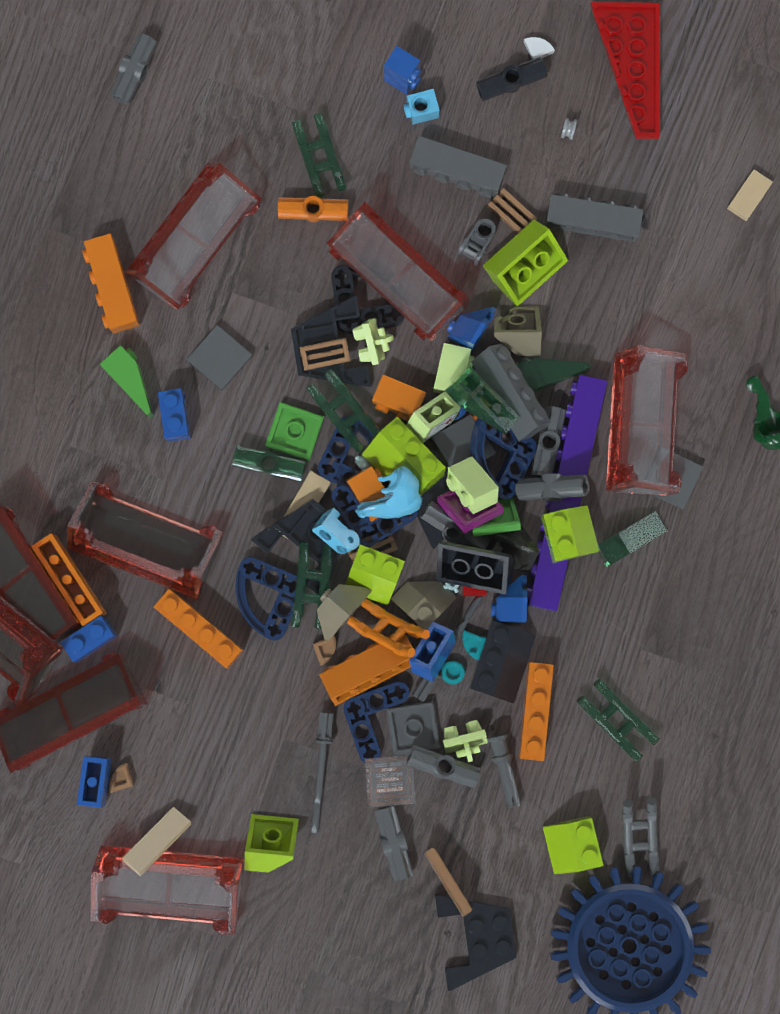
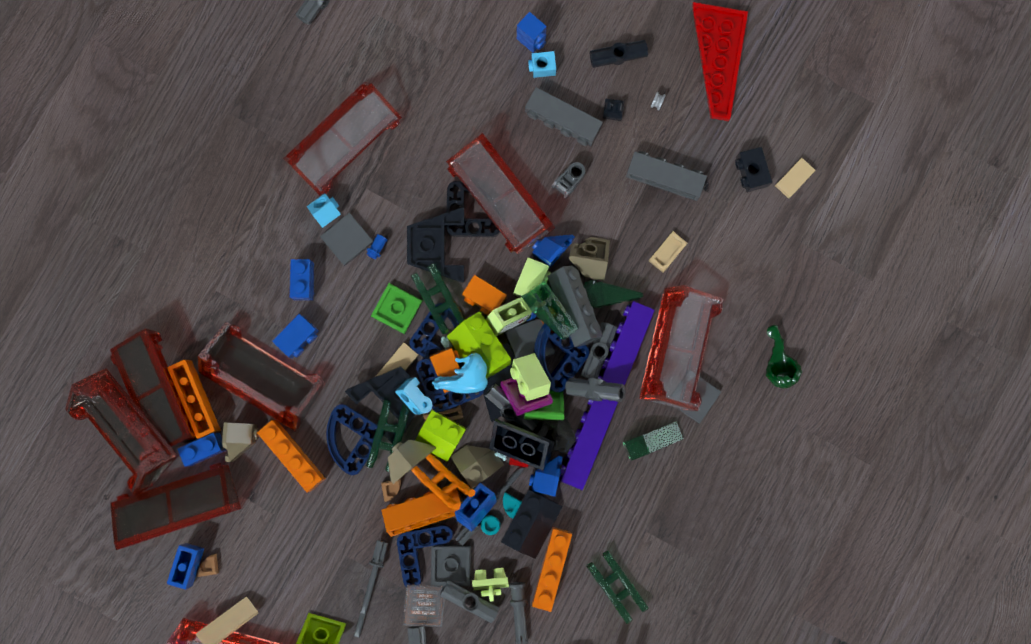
camera: 10 degrees right, 0 degrees up
(111, 284) = (270, 166): orange brick -> none
(128, 375) = (271, 243): bright green slope -> none
(132, 618) = (238, 439): none -> dark tan slope
(179, 485) = (296, 336): none -> blue brick
(187, 326) = (324, 209): none -> medium azure brick
(254, 459) = (359, 327): clear green piece -> none
(257, 361) = (376, 247): none -> blue pin
(307, 148) = (461, 81): clear green piece -> none
(324, 354) = (414, 251): medium nougat tile -> none
(328, 209) = (429, 130): orange piece -> none
(376, 341) = (473, 246): yellowish green hips -> none
(498, 199) = (592, 148): medium nougat tile -> none
(516, 148) = (613, 109): none -> black tile
(526, 262) = (605, 203): lime slope -> none
(538, 47) = (644, 32): white tile -> none
(569, 533) = (603, 429): lime slope -> none
(611, 309) = (668, 251): none -> tan tile
(698, 179) = (756, 159): none -> black brick

